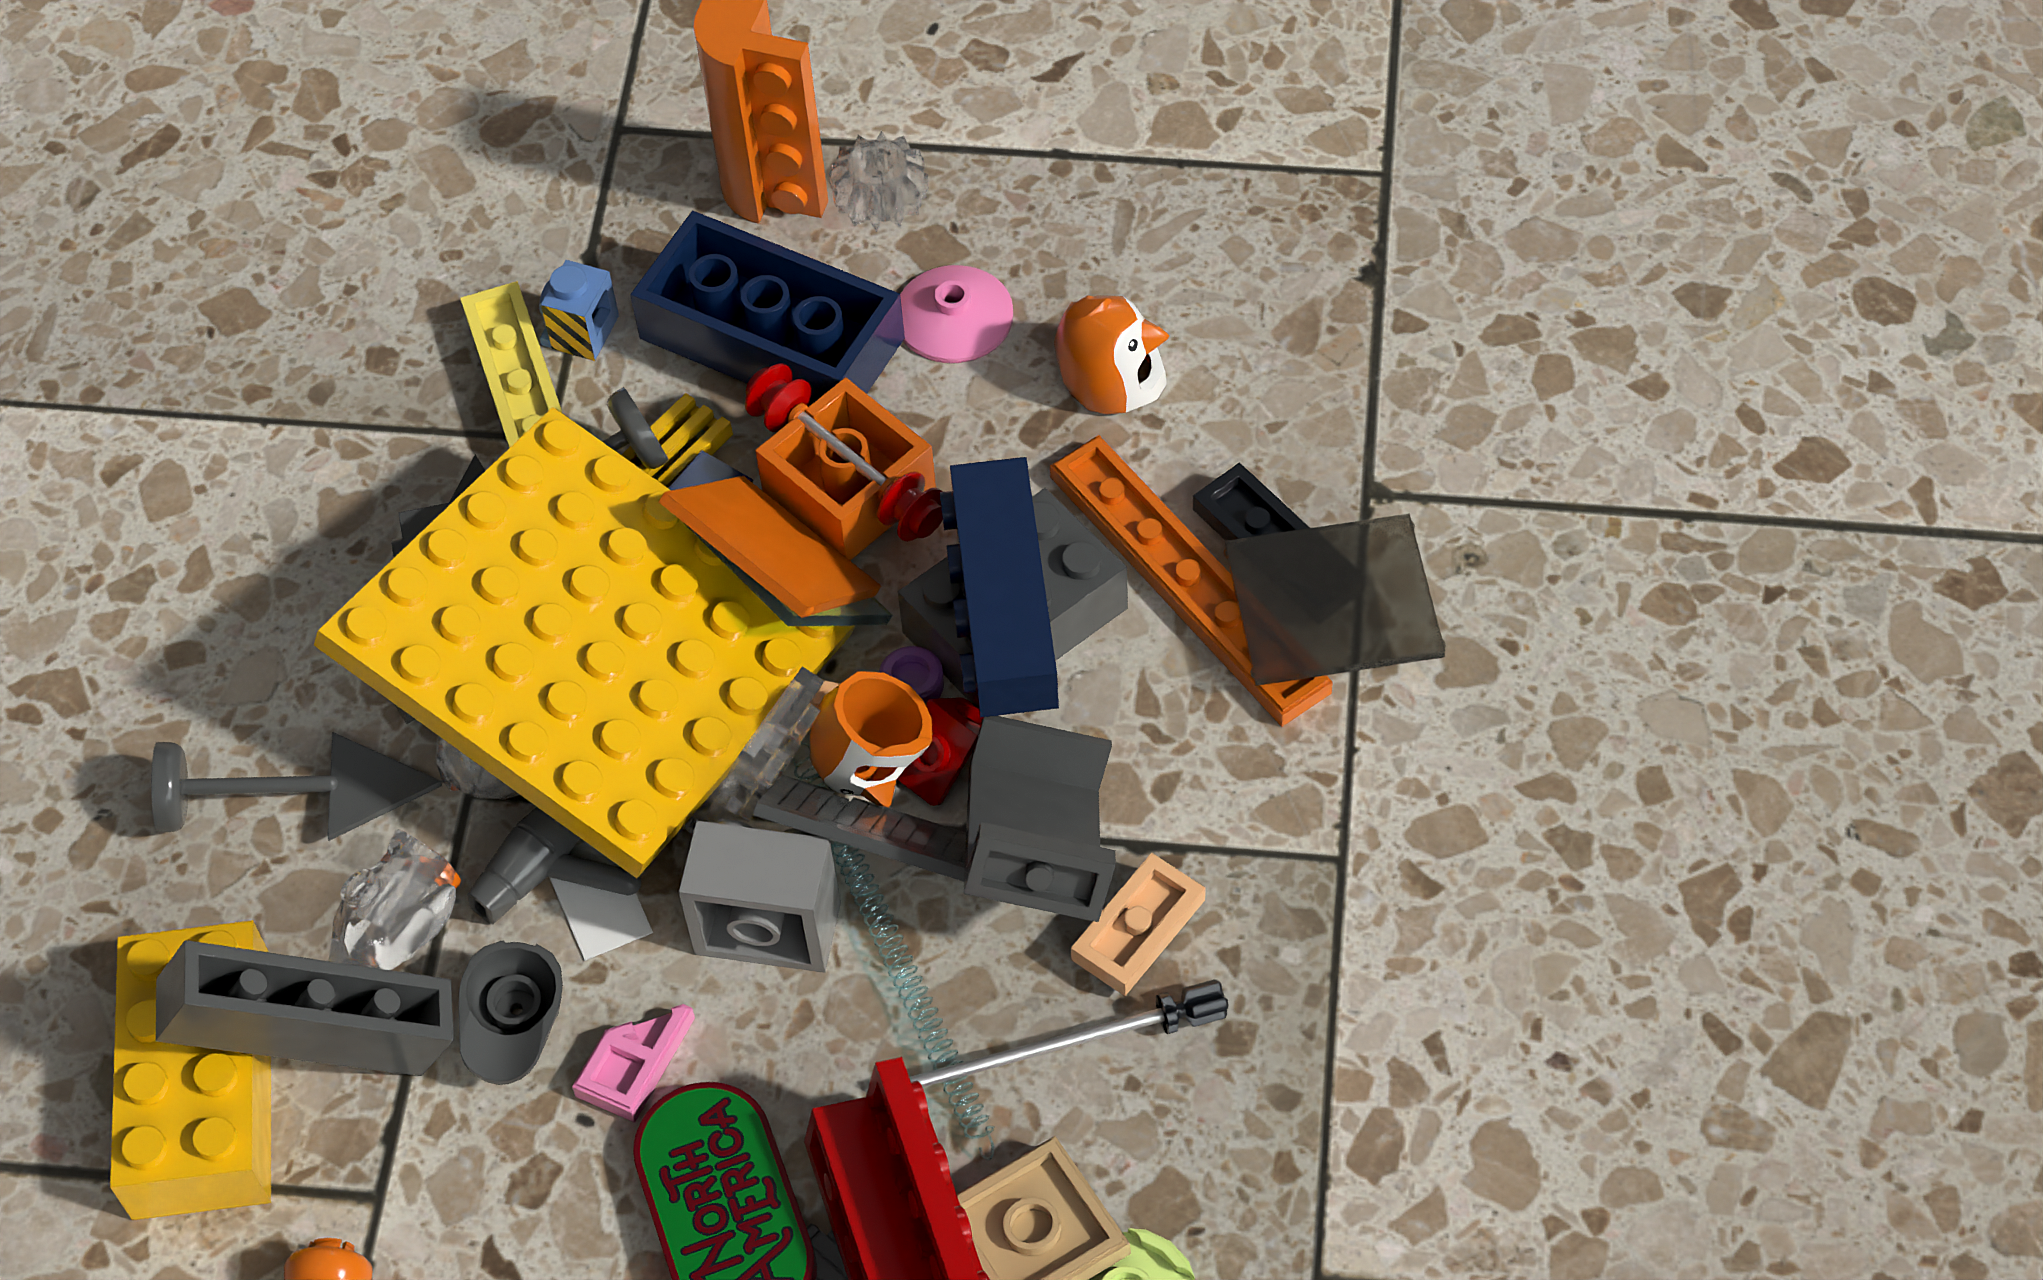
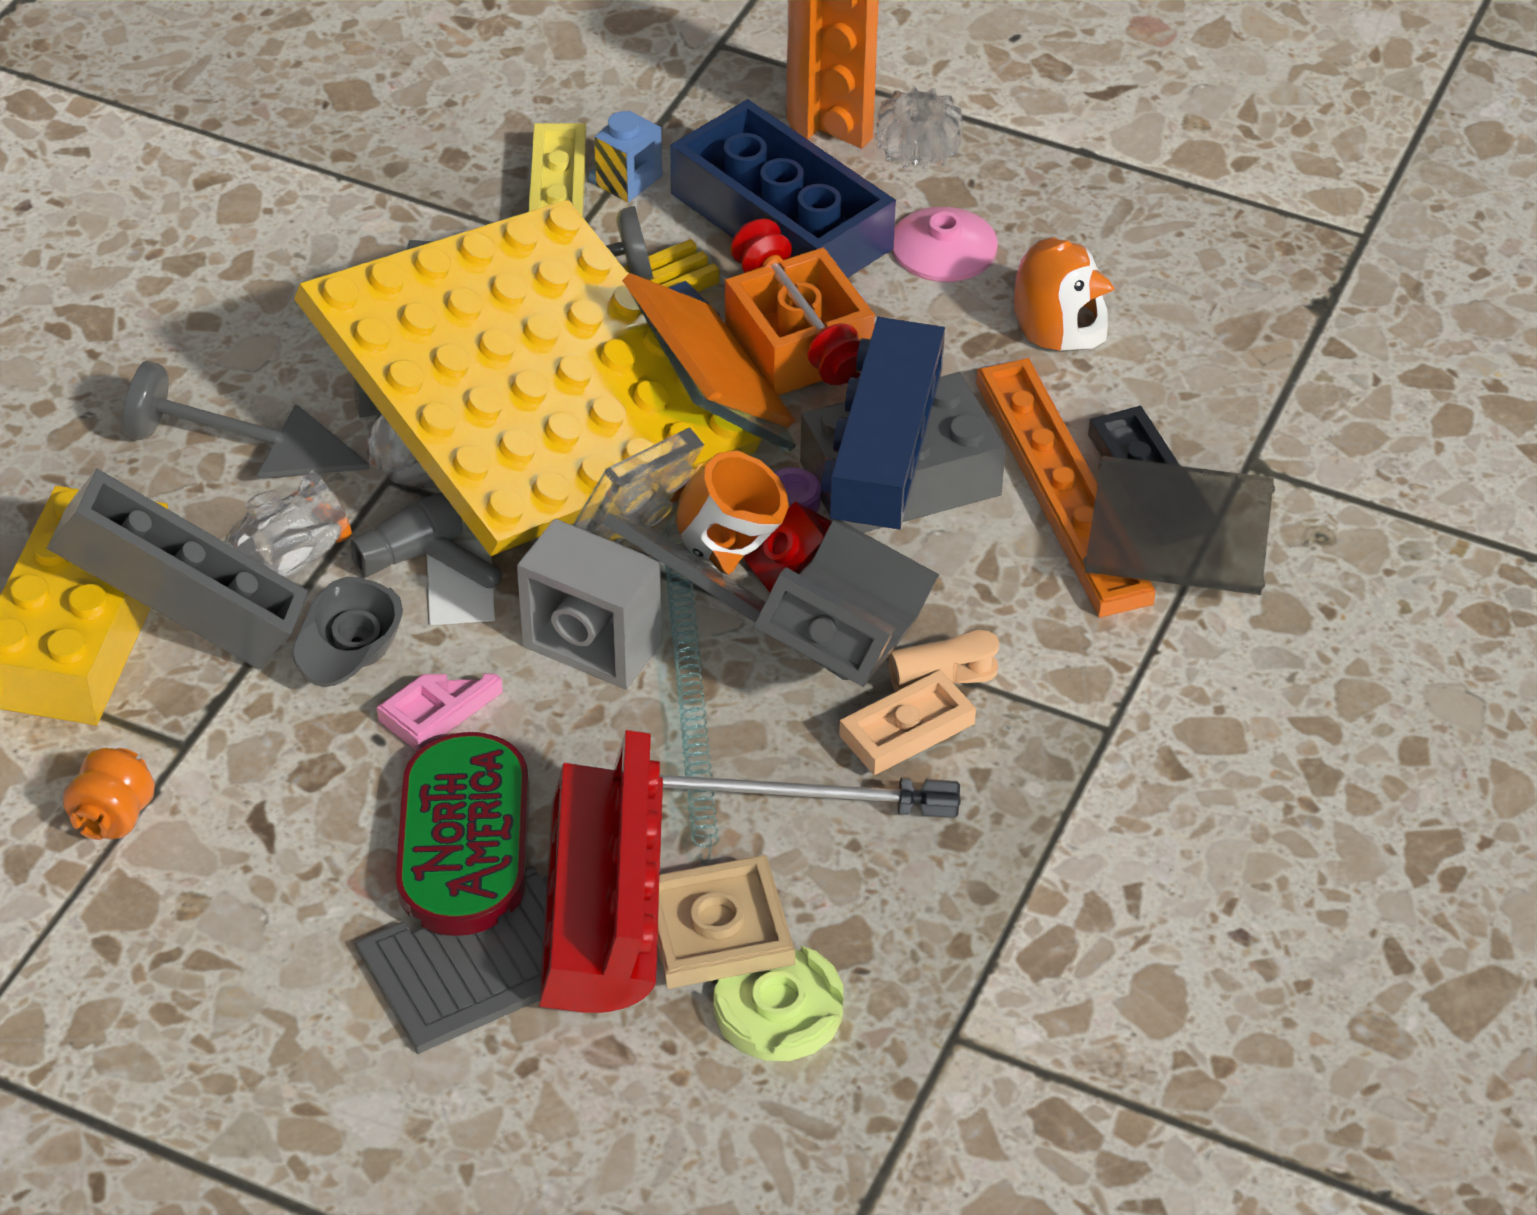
camera: 15 degrees right, 10 degrees down
(1160, 830) = (960, 658): none -> light nougat bar

